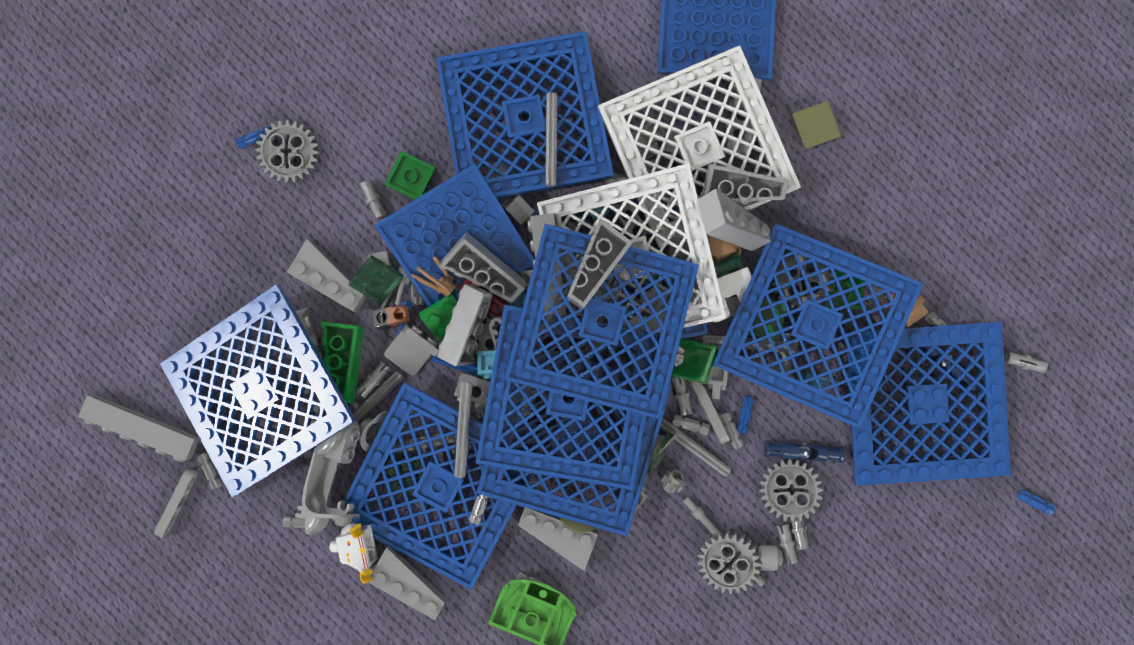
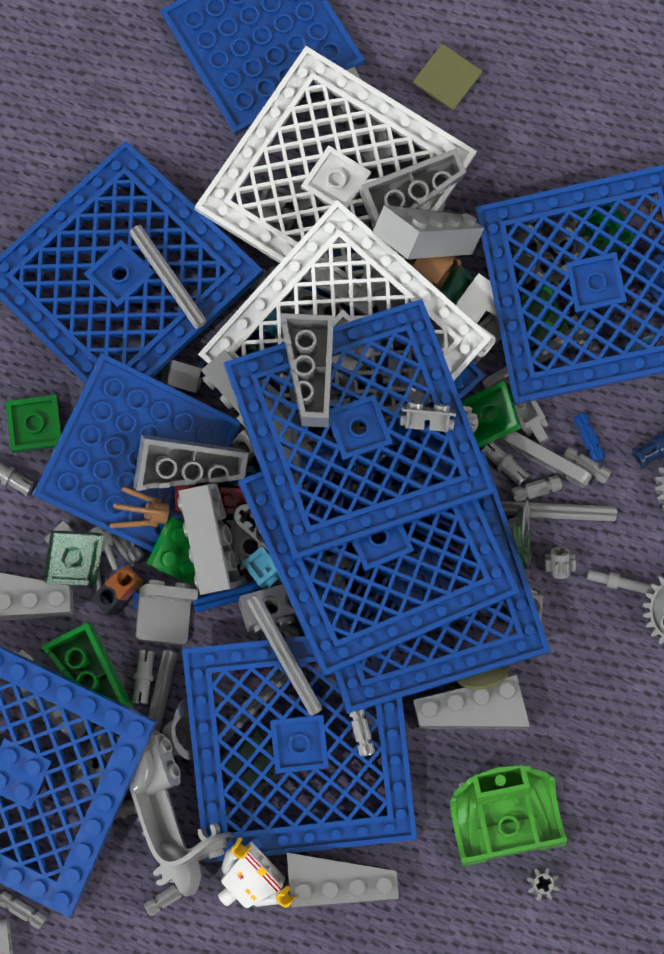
camera: 30 degrees left, 10 degrees down
(645, 338) = (417, 414): none -> light grey hinge

